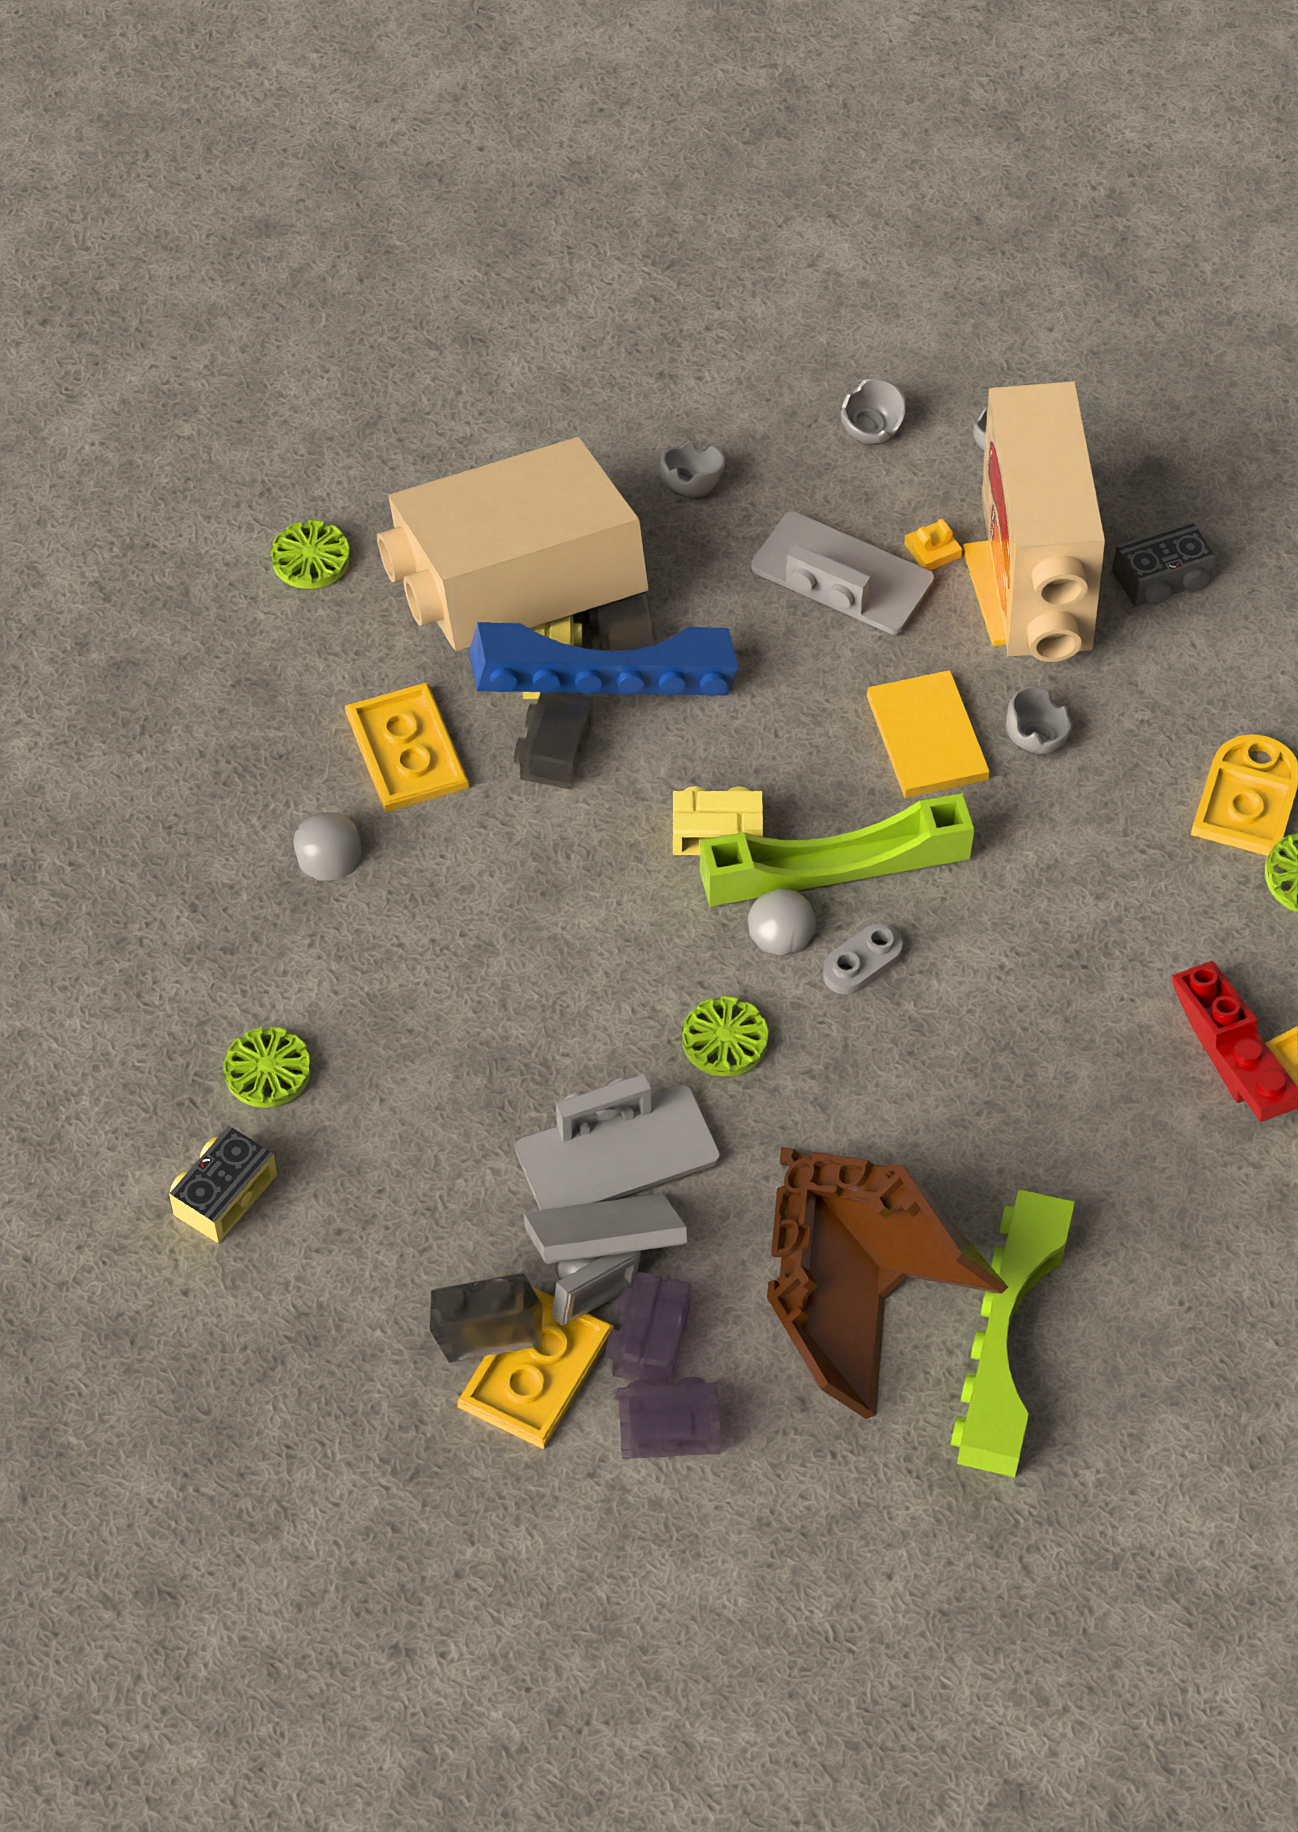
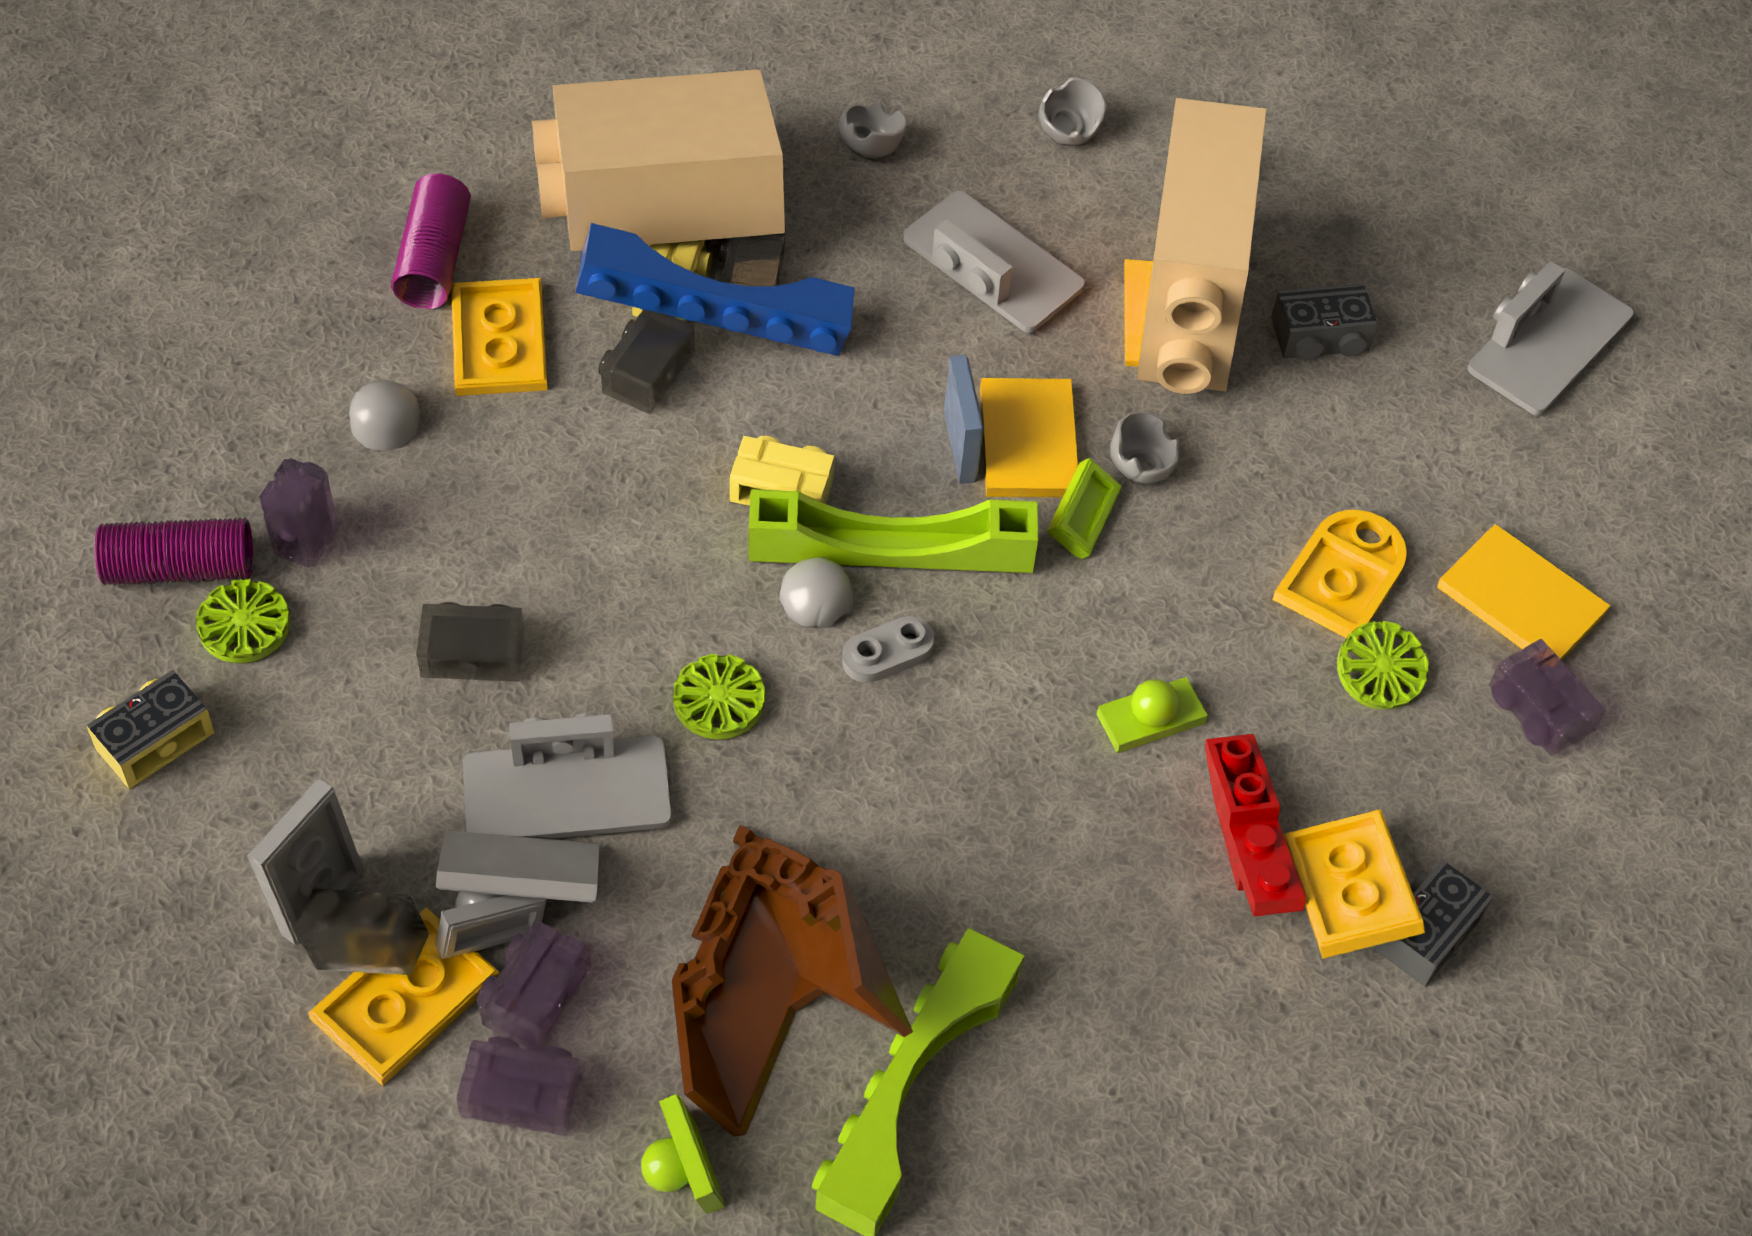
camera: 10 degrees right, 0 degrees up
(203, 1011) = (188, 548): none -> magenta piece
(291, 954) = (299, 512): none -> brick
(307, 633) = (436, 208): none -> magenta piece
(310, 554) = (471, 133): lime wheel -> none
(420, 1263) = (305, 852): none -> light grey tile
(486, 1038) = (470, 642): none -> clear smoke brick
(825, 1450) = (681, 1160): none -> lime tile
(868, 731) = (963, 419): none -> sand blue tile
(933, 545) = (1094, 254): yellow tile -> none
(999, 789) = (1084, 508): none -> lime tile
(1115, 963) = (1151, 713): none -> lime tile

